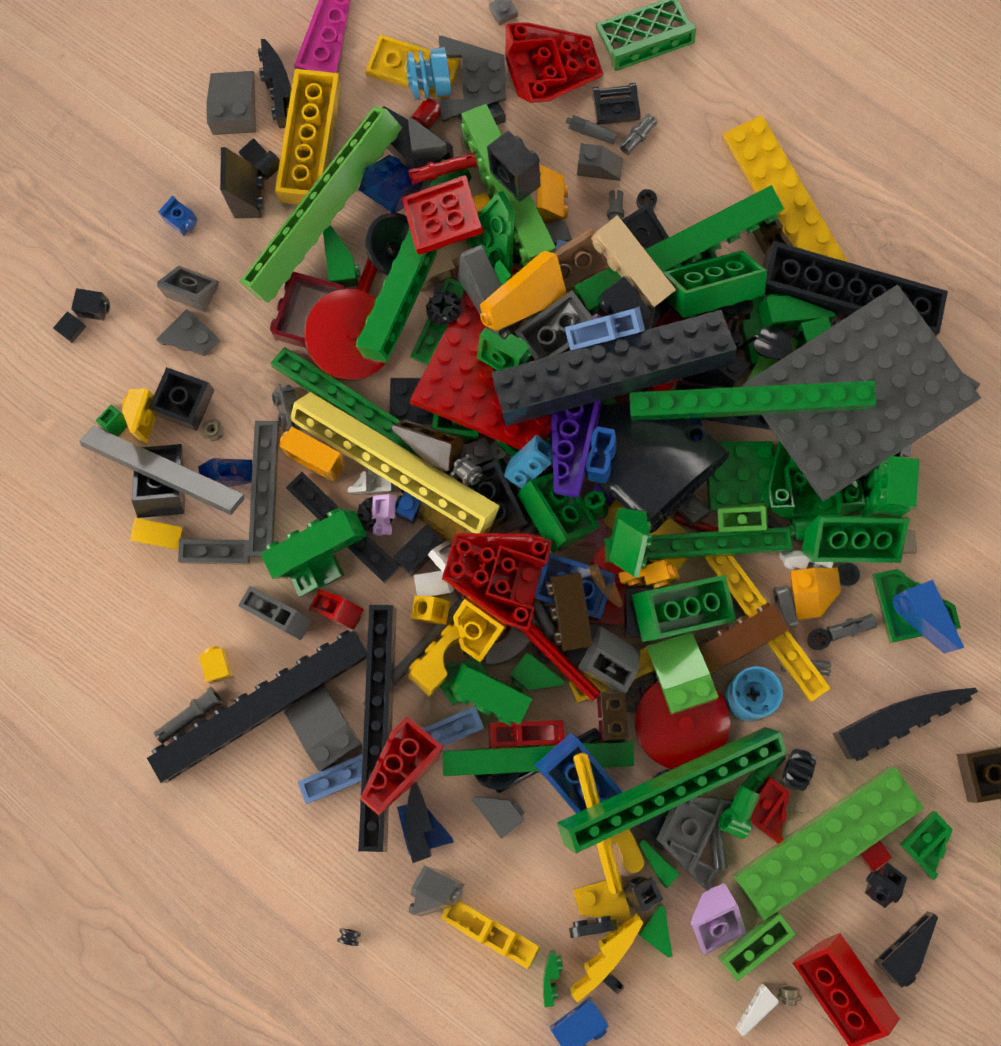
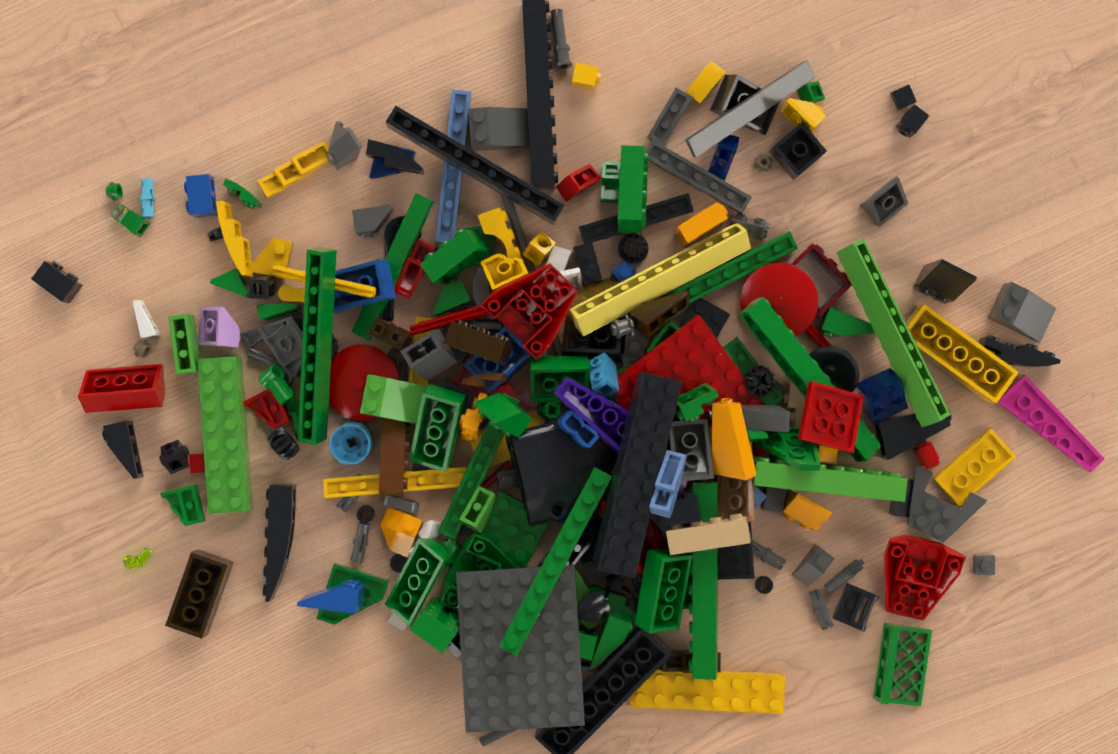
camera: 110 degrees right, 10 degrees up
(178, 216) = (954, 218): blue brick -> none
(189, 335) = (847, 183): dark grey wing -> none
(265, 161) = (961, 308): black panel -> none
(275, 613) = (599, 137): dark grey slope -> none
(349, 937) = (346, 72): black bush -> none
(371, 484) = (658, 254): white slope -> none
(383, 510) = (629, 253): lavender plate -> none
(400, 765) = (439, 167): red wedge -> none
(425, 143) = (900, 437): dark grey slope -> none
(429, 73) = (956, 473): dark azure wheel -> none
(438, 169) = (872, 431): red pin -> none
(514, 165) = (835, 490): black brick -> none
(602, 925) = (262, 233): black plate -> none

